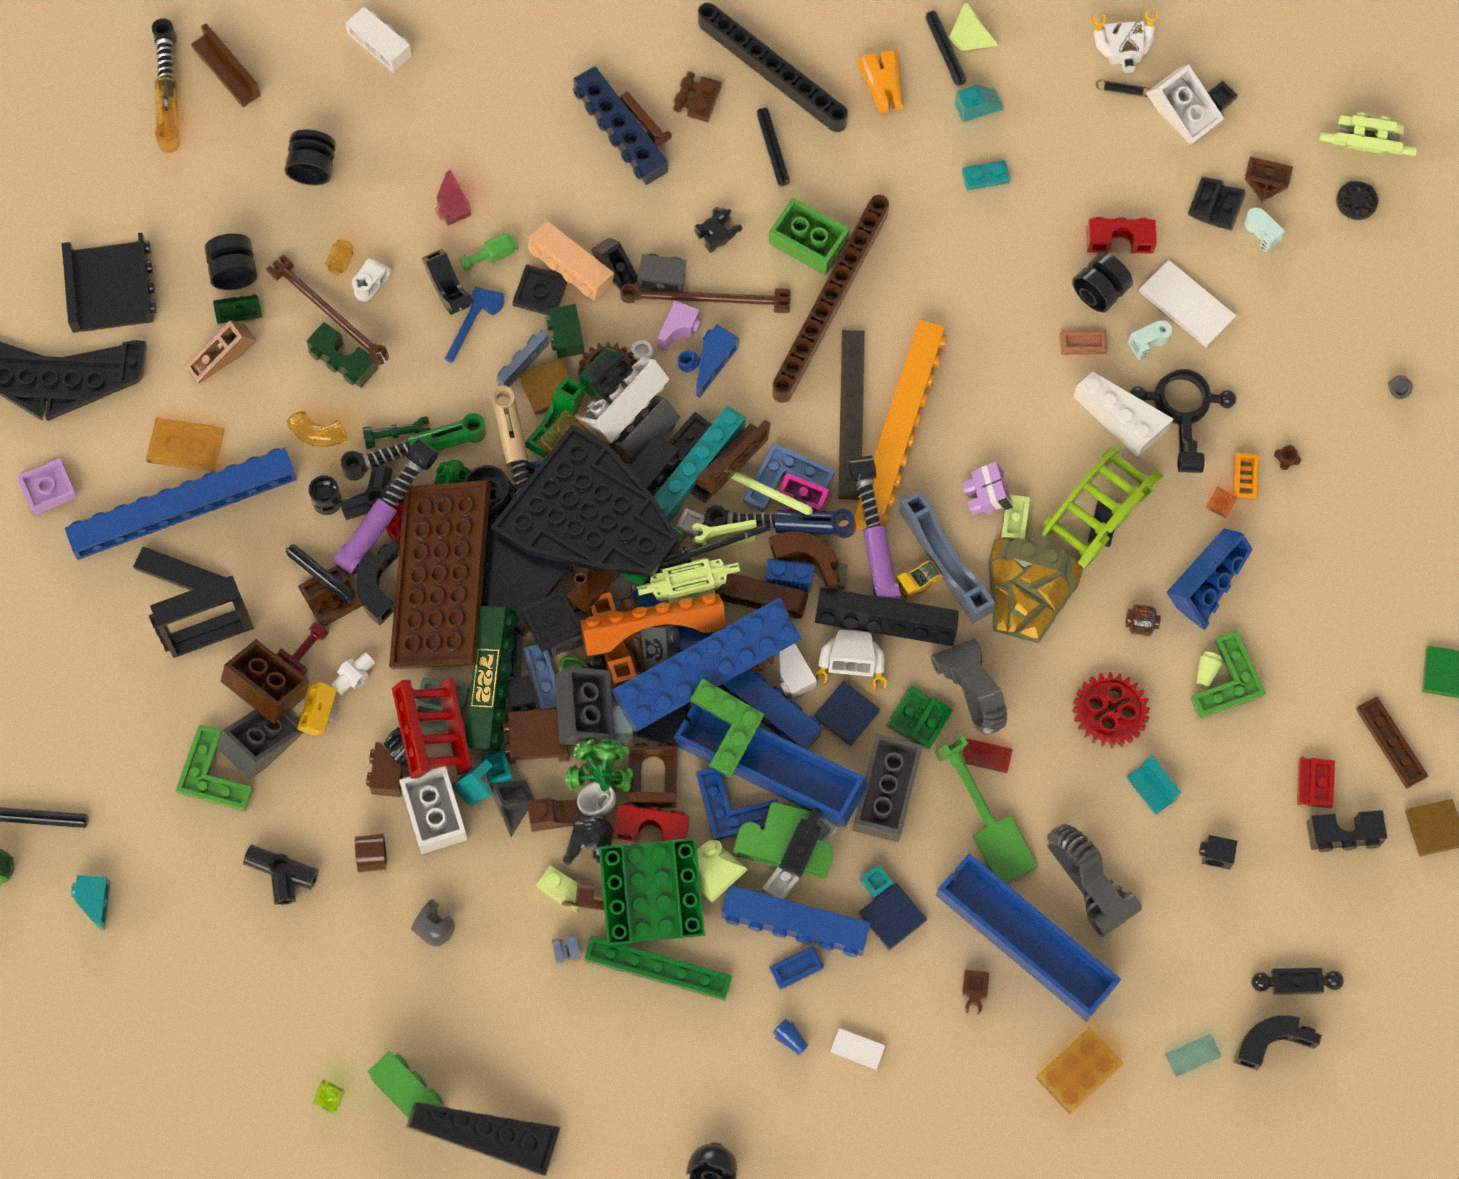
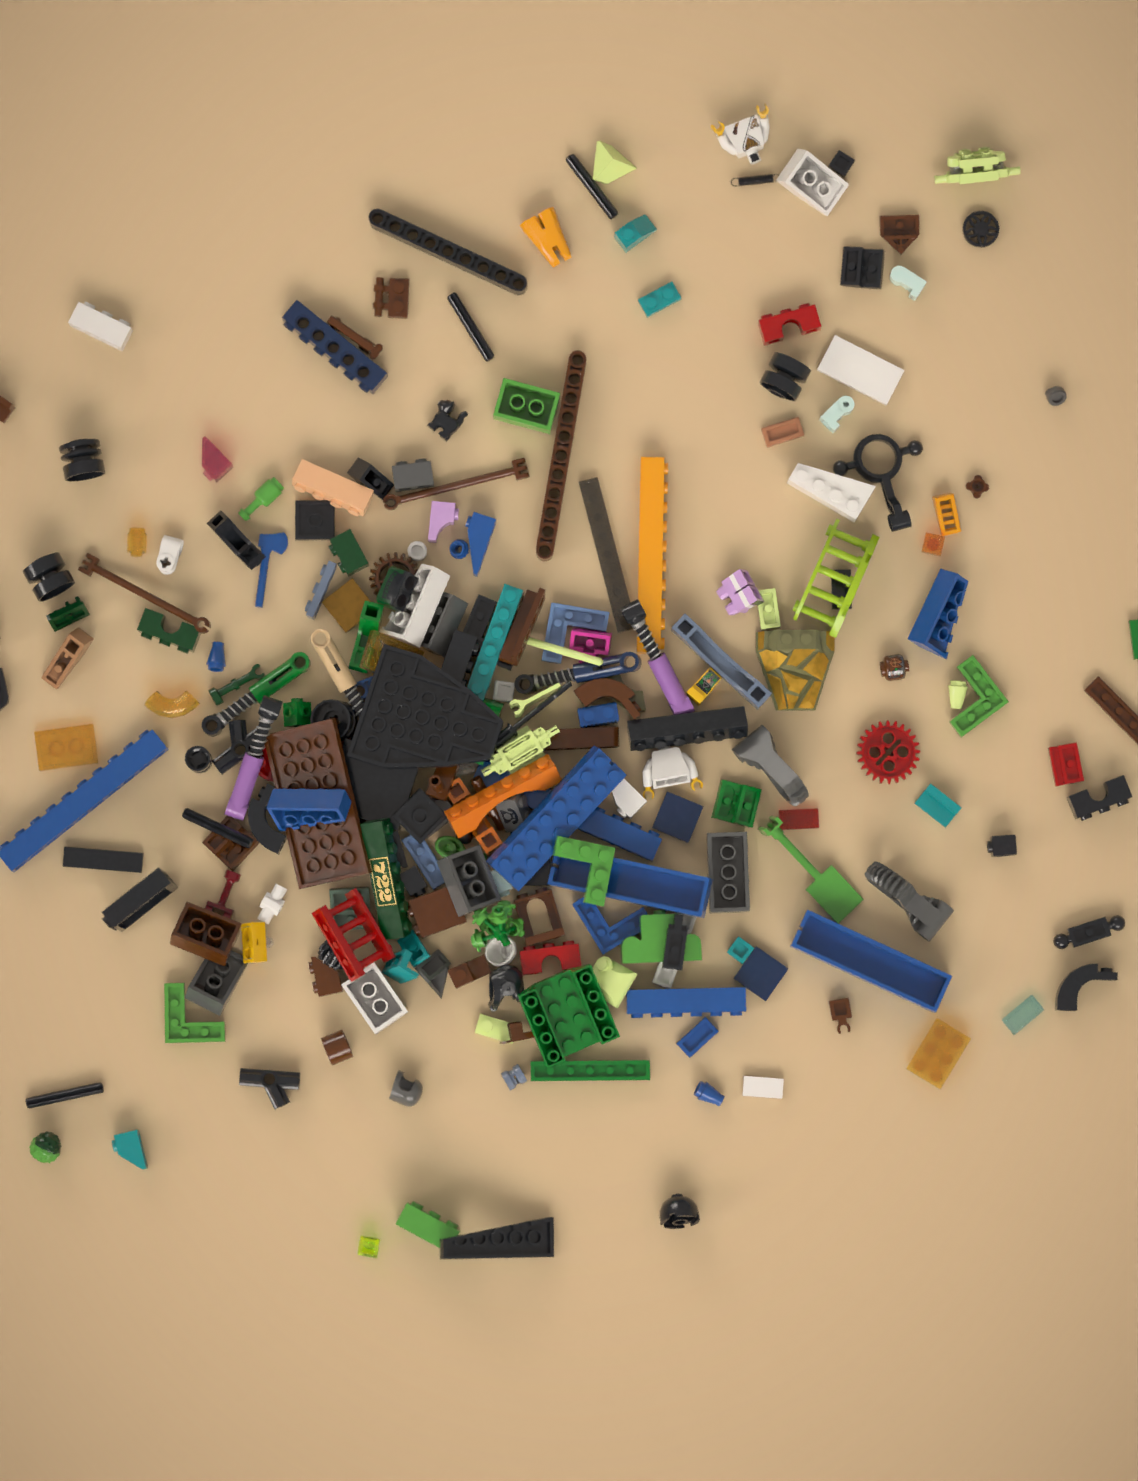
camera: 15 degrees left, 15 degrees up
(383, 398) = (216, 658): none -> blue cone
(426, 571) = (307, 807): none -> blue wedge

